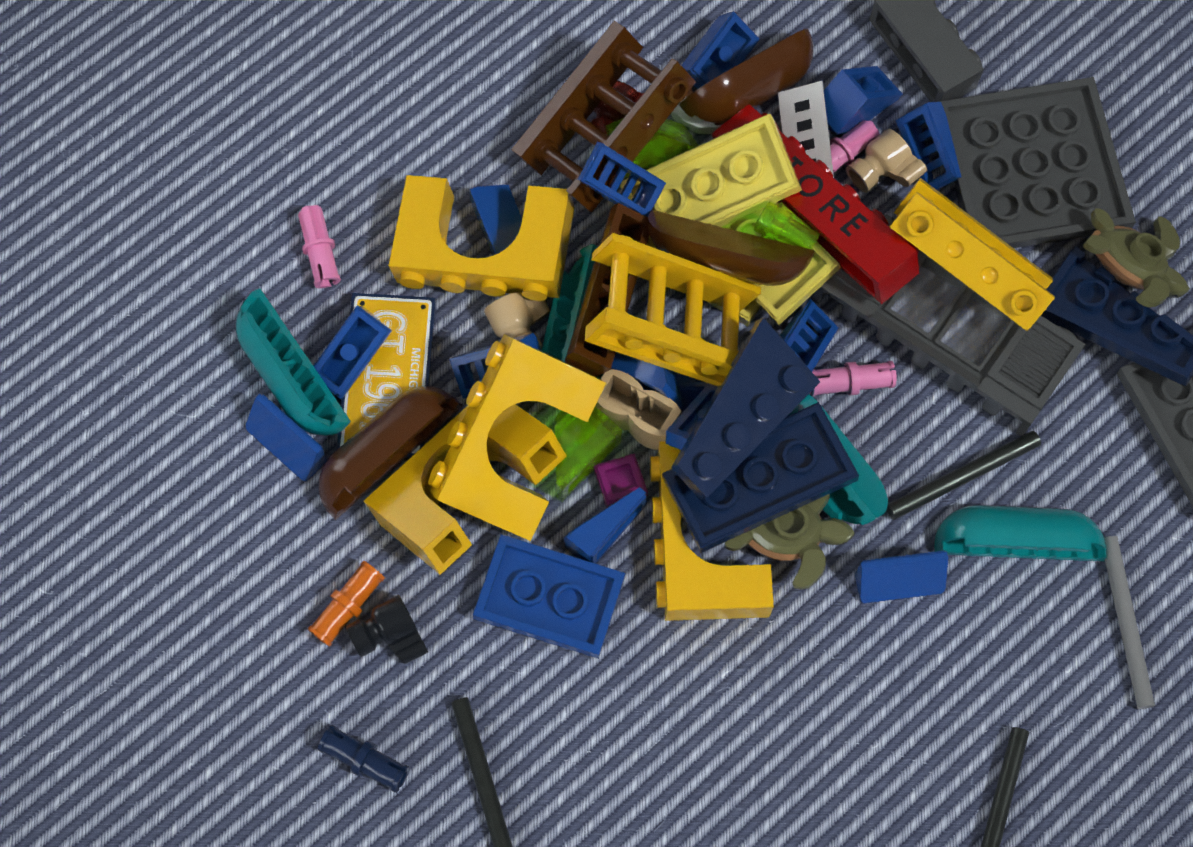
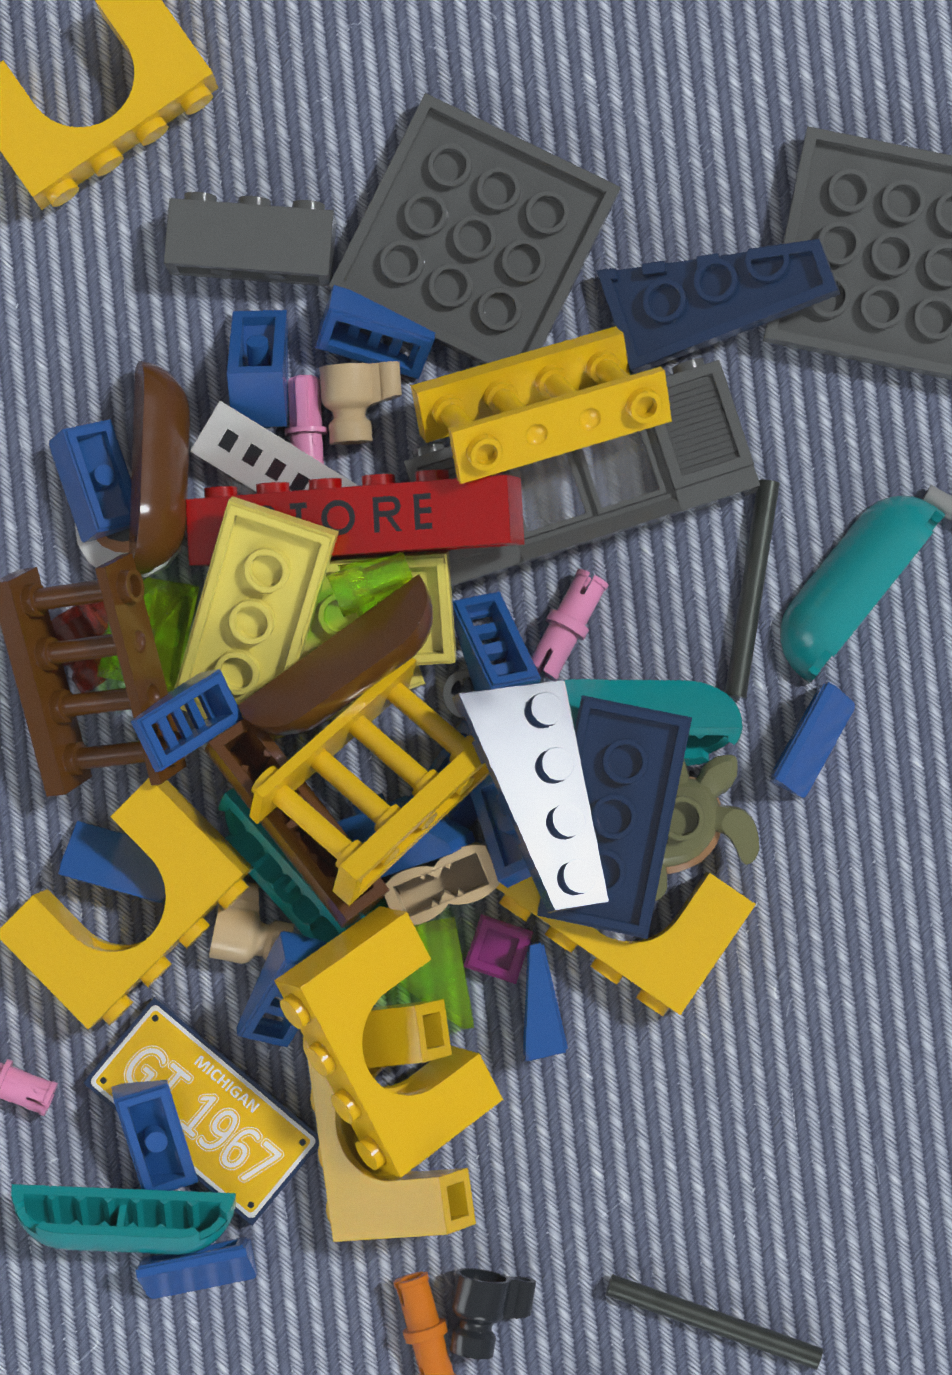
camera: 45 degrees left, 15 degrees up
(383, 445) = (282, 1173): reddish brown brick -> none
(549, 596) = (570, 1117): blue plate -> none
(1138, 257) = (663, 220): olive animal -> none

